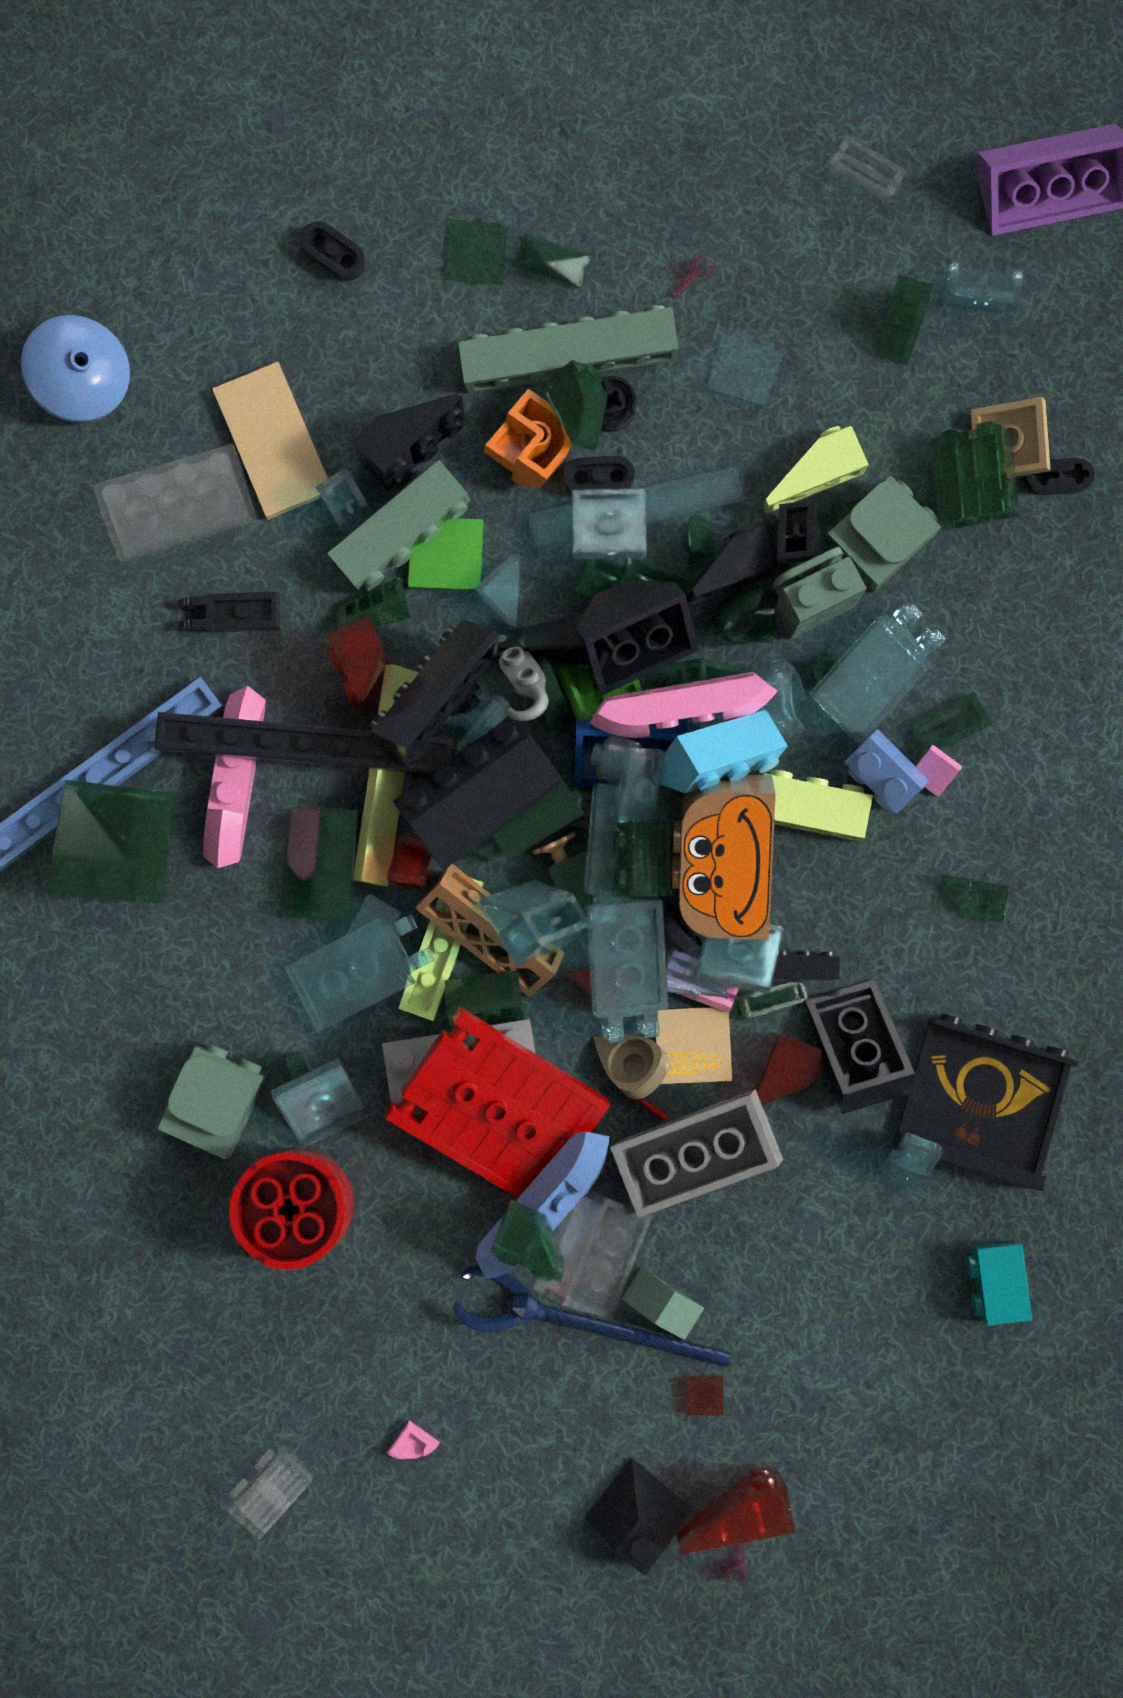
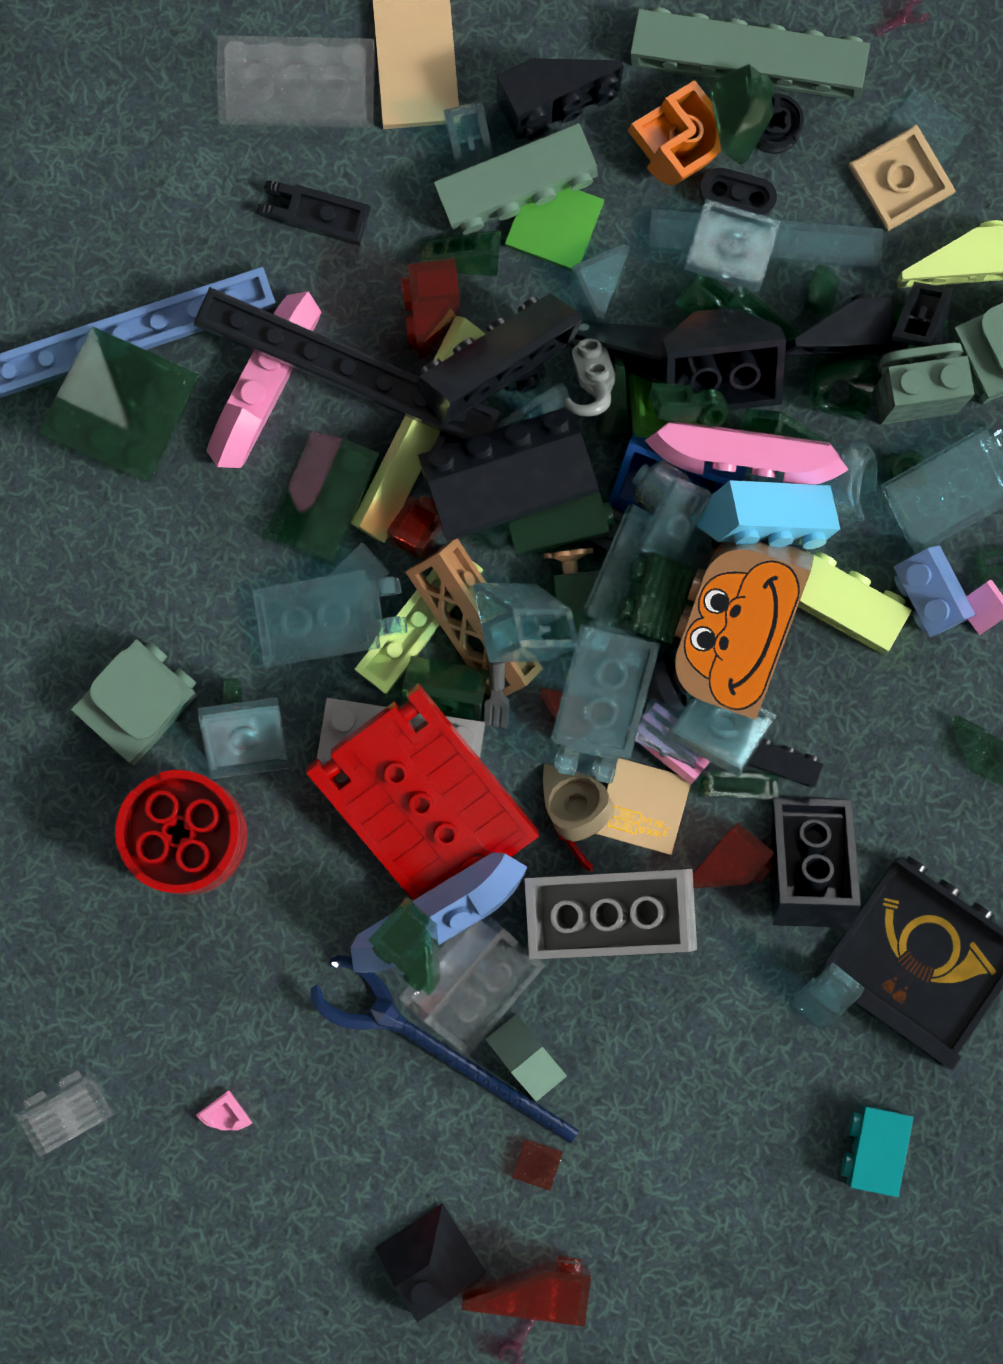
camera: 15 degrees right, 0 degrees up
(534, 998) = (496, 704): none -> dark grey piece
(609, 680) = (680, 403): none -> clear green plate
(738, 416) = (901, 178): none -> tan tile

